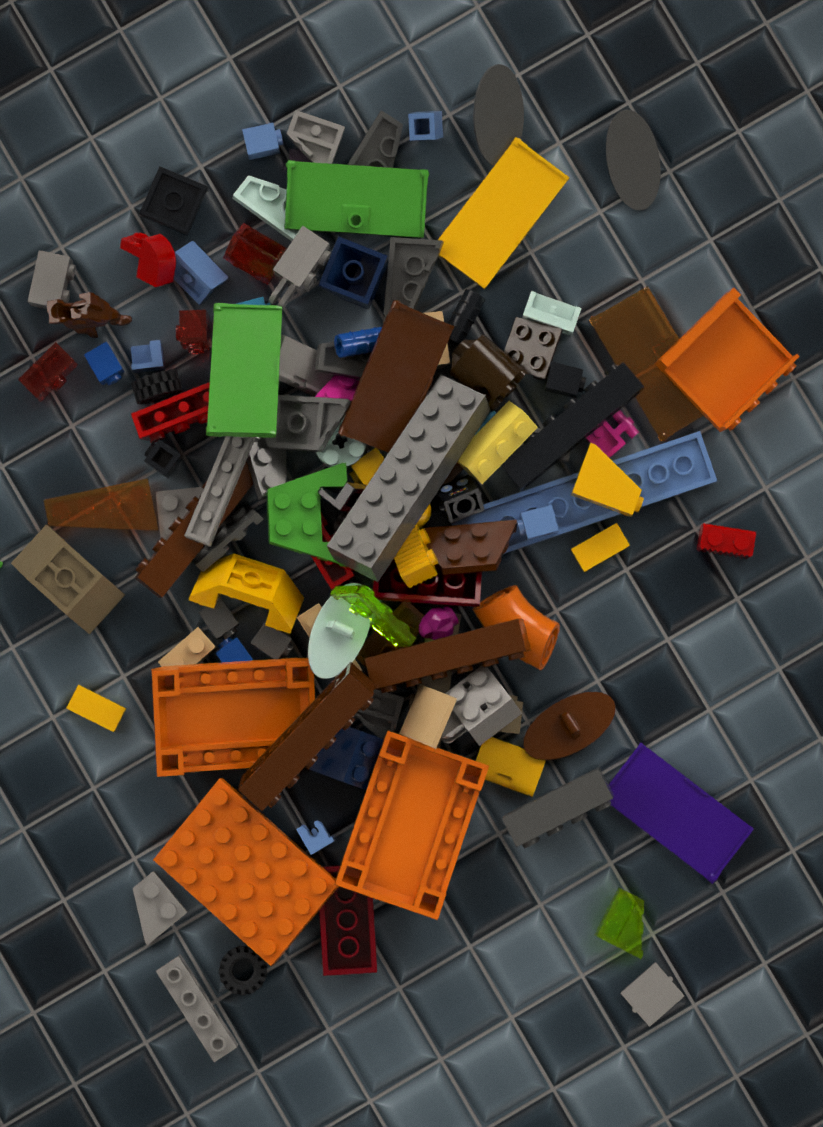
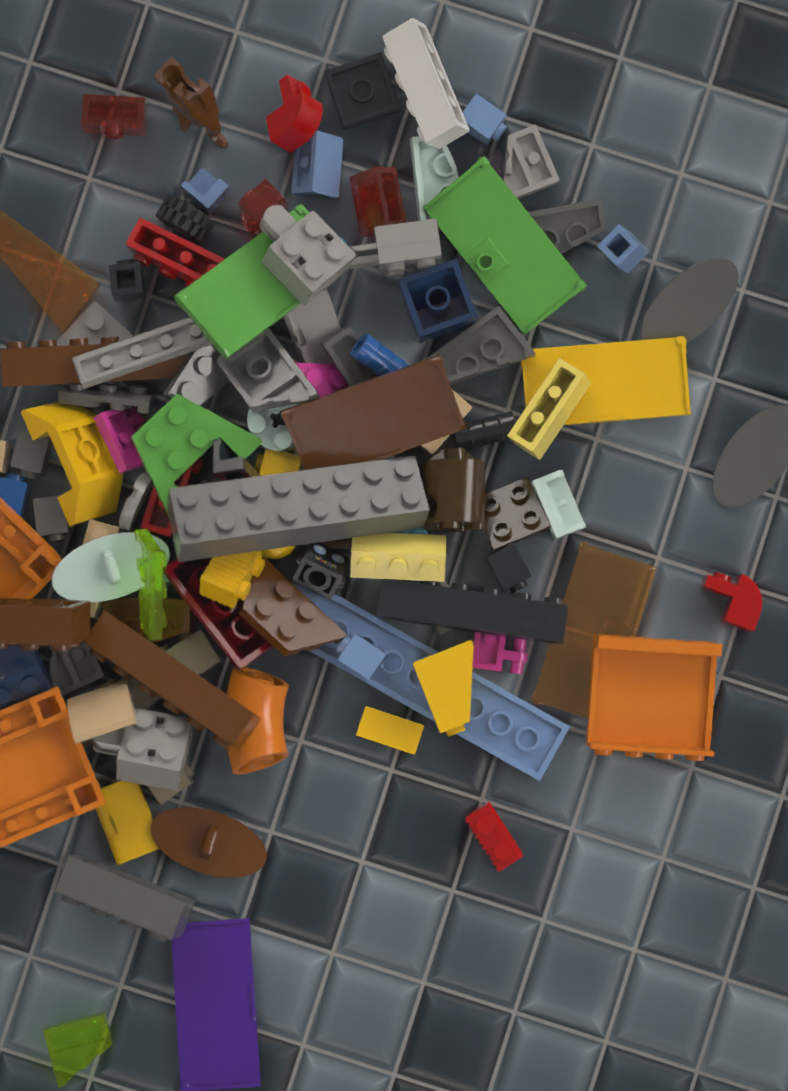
camera: 45 degrees right, 0 degrees up
(51, 279) = (199, 46): light grey brick -> none
(105, 364) = (166, 158): blue brick -> none
(206, 156) = (425, 84): none -> white brick
(251, 328) = (304, 253): none -> light grey brick
(256, 549) = (116, 431): none -> dark pink plate
(311, 578) = (136, 503): none -> light grey tile
(438, 623) = (192, 647): magenta rock -> none
(487, 263) = (549, 409): none -> light yellow brick
(716, 249) = (744, 599): none -> red brick

